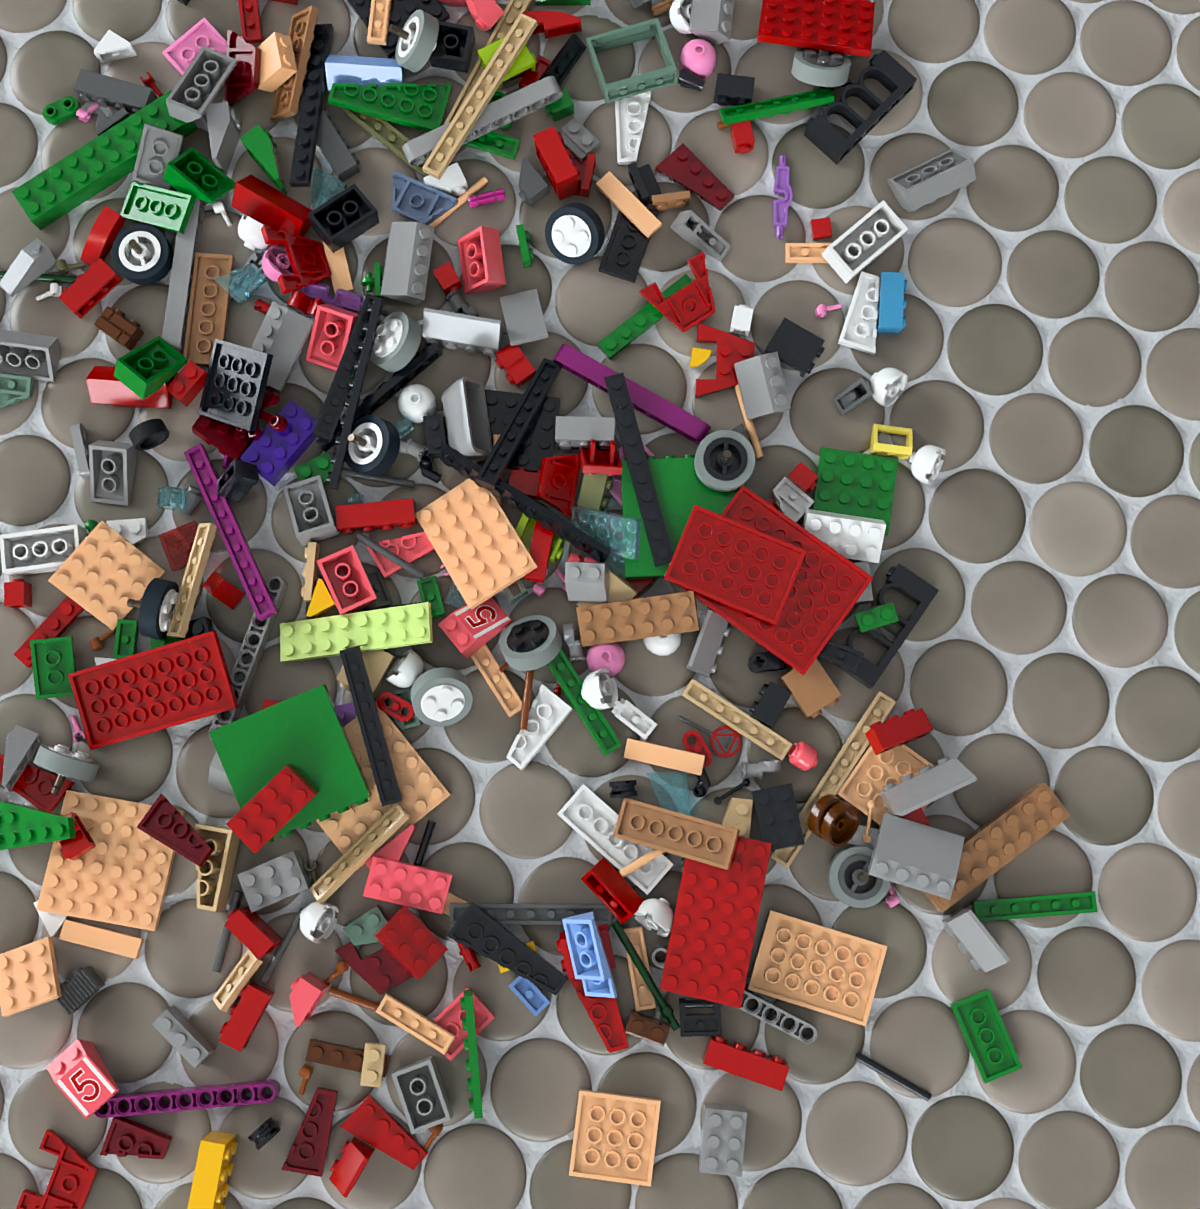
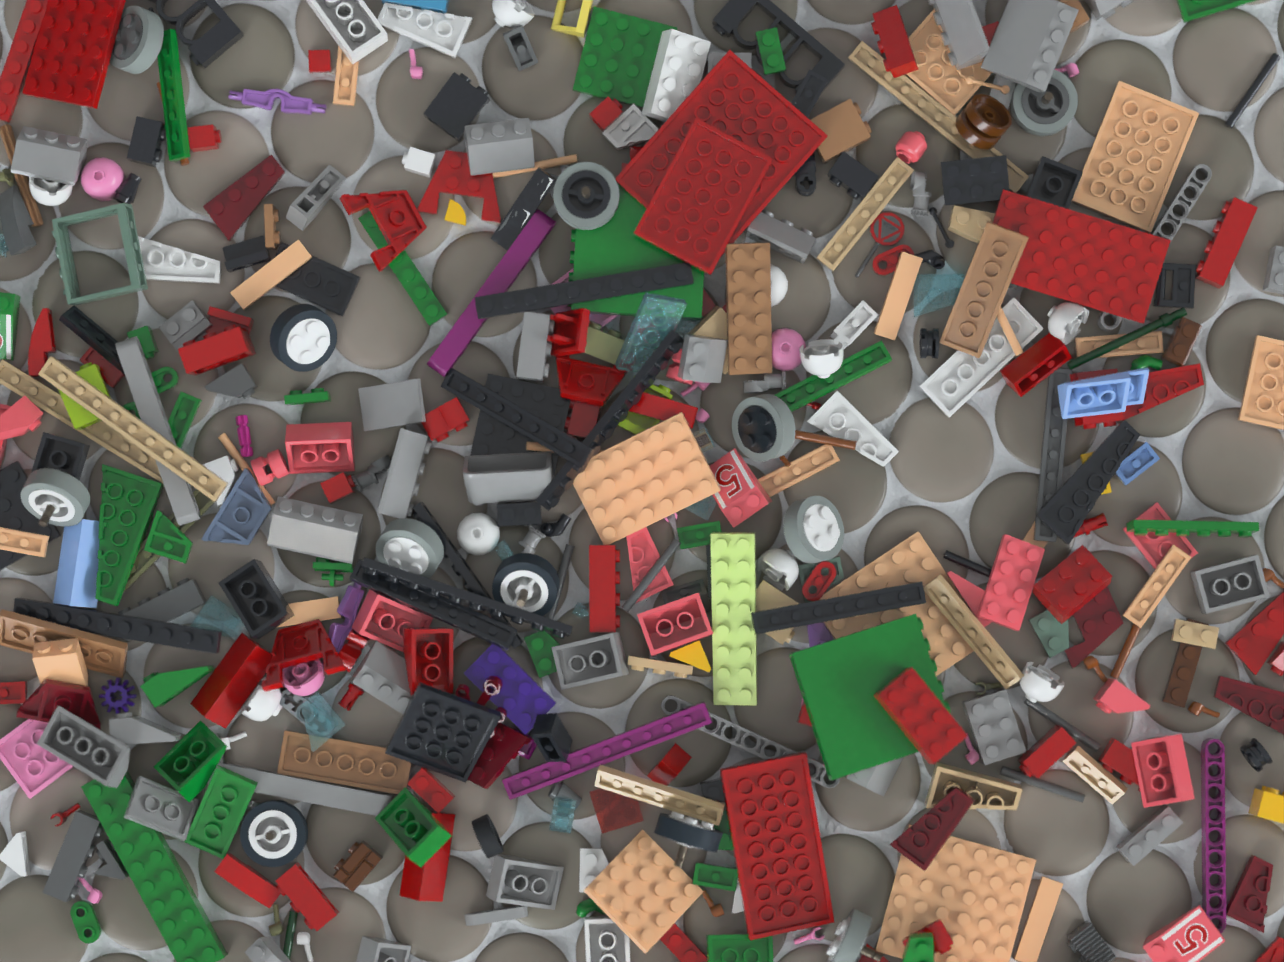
camera: 85 degrees left, 5 degrees up
(240, 1044) = (1162, 770): none -> coral slope
(248, 864) = (972, 757): none -> bright pink hand
(253, 114) = (115, 687): none -> dark purple gear
(300, 369) = (429, 657): none -> red slope
(389, 140) = (168, 540): none -> green wing
(459, 218) = (277, 464): none -> coral wheel
(528, 122) = (160, 383): none -> green plate
(626, 995) = (1146, 361): none -> green arm
(709, 412) = (523, 208): none -> black tile
(783, 892) = (1054, 183): none -> black brick

